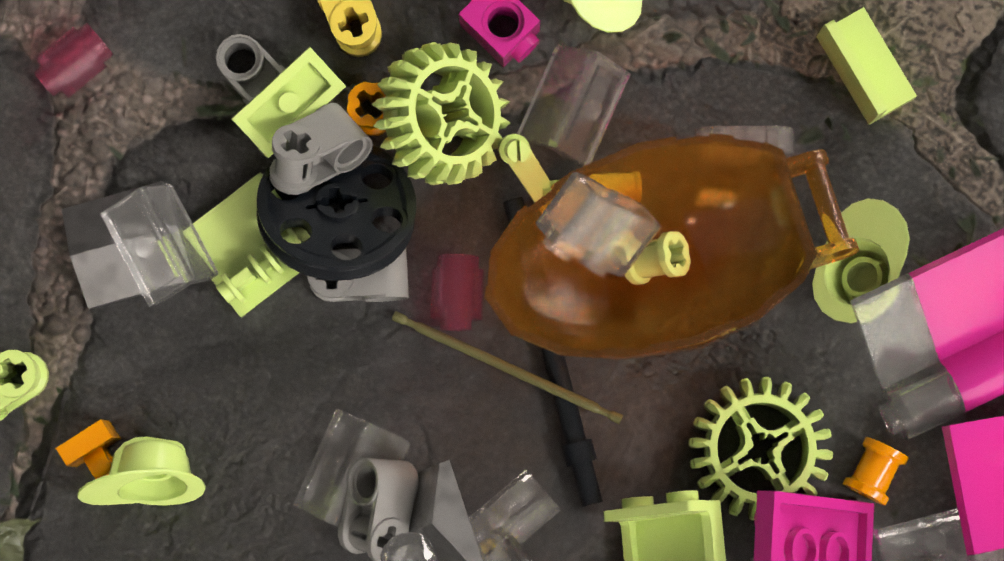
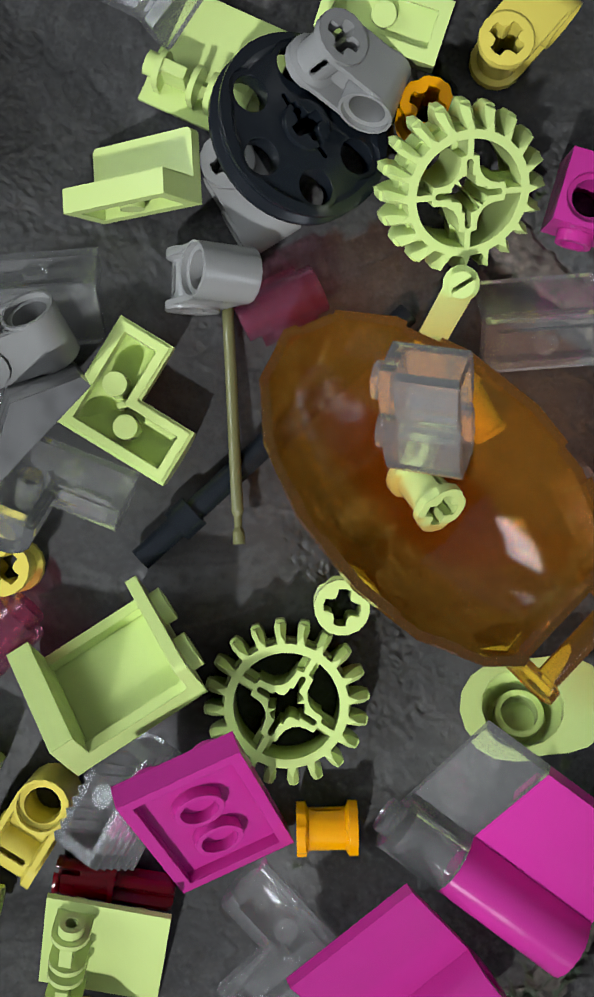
camera: 60 degrees right, 5 degrees up
(305, 346) = (140, 178): none -> yellowish green panel
(410, 331) = (212, 277): none -> light grey piece
(476, 459) = (114, 407): none -> yellowish green brick
(724, 367) = (352, 619): none -> yellowish green bush

